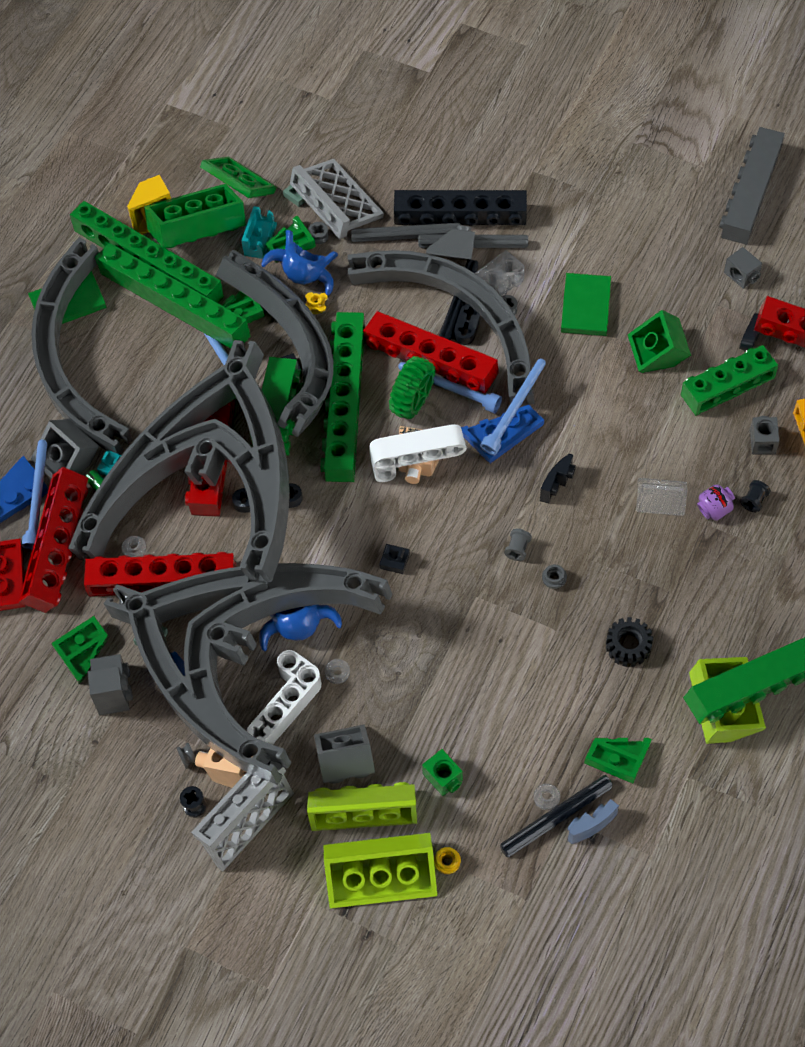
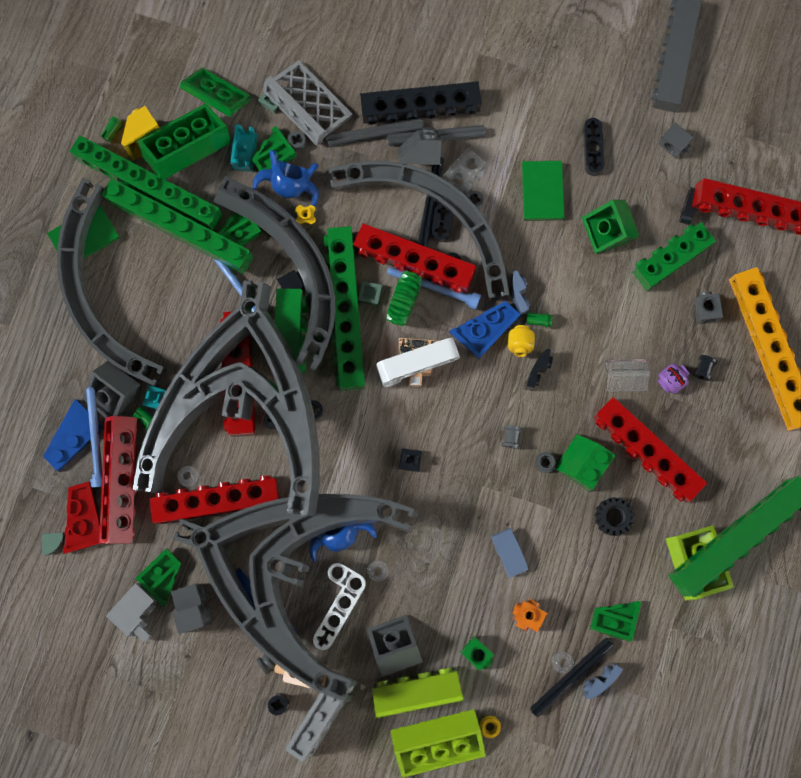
camera: 10 degrees left, 20 degrees up
(40, 679) = (130, 612): none -> light grey hinge
(118, 203) = (111, 129): none -> green pin
(375, 385) = (370, 293): none -> sand green tile
(491, 443) = (480, 346): medium blue piece -> none
(497, 666) = (509, 552): none -> sand blue slope
(511, 735) = (536, 618): none -> orange brick
(541, 446) = (521, 340): none -> yellow head
(545, 399) = (518, 287): none -> sand blue slope
(565, 428) = (539, 319): none -> green pin
(601, 581) = (584, 462): none -> green slope
(645, 274) = (598, 139): none -> black beam
(677, 562) = (692, 481): none -> red brick

